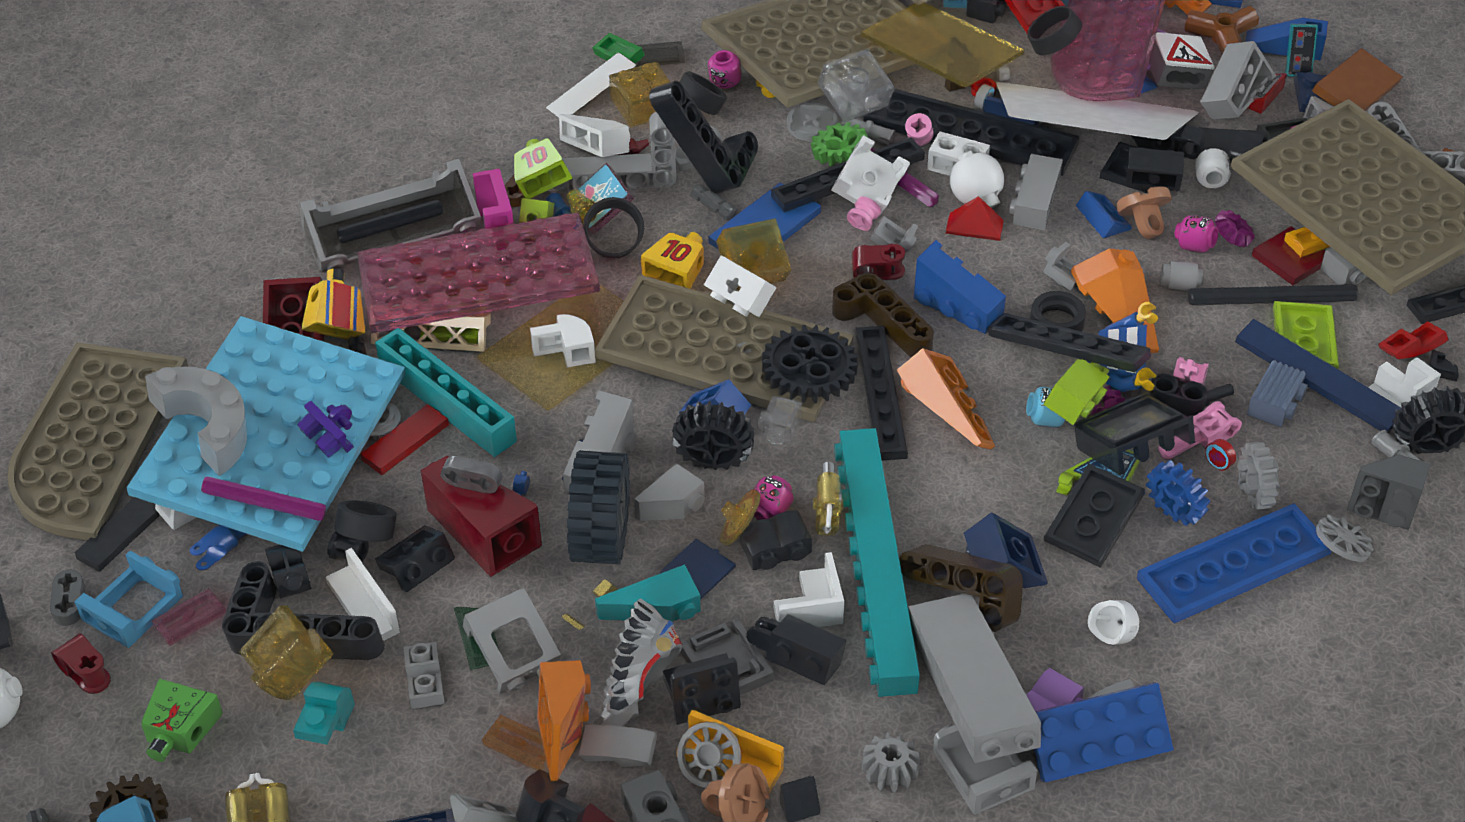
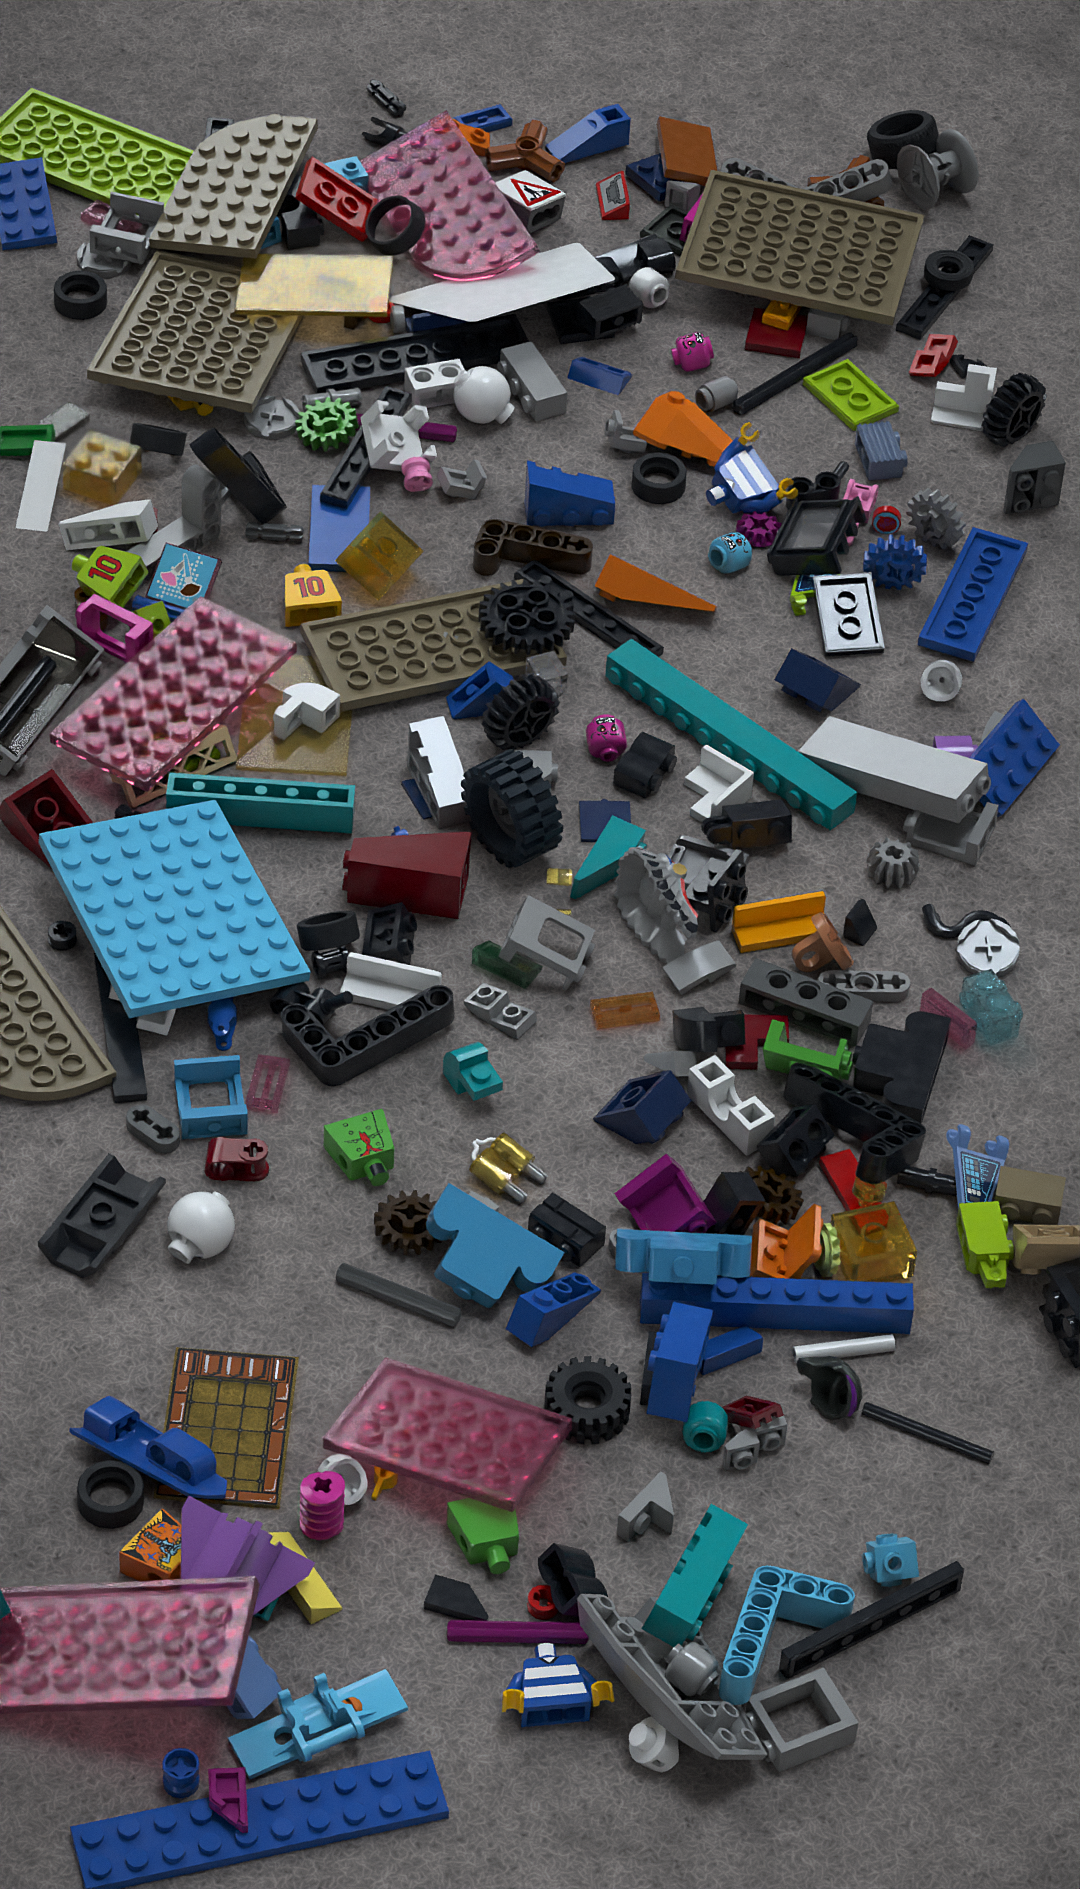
camera: 45 degrees left, 0 degrees up
(208, 396) = (136, 902): light grey brick -> none
(263, 498) = (252, 952): magenta axle -> none
(284, 654) = (399, 1048): clear yellow brick -> none
(334, 308) = (89, 788): yellow torso -> none
(334, 437) = (235, 868): dark purple hips -> none
(404, 439) = (265, 854): red tile -> none
(471, 474) = (402, 836): flat silver beam -> none
(561, 711) = (652, 963): orange slope -> none
(579, 203) = (178, 593): clear yellow cone -> none
(618, 203) = (246, 579): black tyre -> none
(707, 753) = (772, 930): light grey wheel -> none
(724, 69) = (150, 406): dark pink head -> none
(738, 516) = (606, 761): clear yellow piece -> none
(753, 293) = (422, 577): white brick -> none
(827, 501) = (655, 712): clear yellow piece -> none
(856, 85) = (300, 361): clear brick -> none
(878, 261) = (473, 508): dark red piece -> none
(924, 133) = (379, 380): bright pink wheel -> none
(955, 572) = (810, 711): dark brown beam -> none
(975, 220) = (507, 434): red slope -> none
(1070, 342) = (700, 491): black tile -> none
(1078, 390) = (752, 525): lime hinge -> none
(1146, 209) = (639, 352): nougat tile -> none
(1190, 371) = (808, 466): bright pink connector -> none
(1234, 228) = (718, 332): magenta gear -> none
(1236, 80) = (593, 198): light grey wedge -> none
(1301, 48) = (616, 141): tile -> none
(1320, 375) = (902, 419): dark blue tile -> none
(1344, 538) = (1028, 533): light grey wheel -> none
(1390, 446) = (998, 449): light grey axle -> none

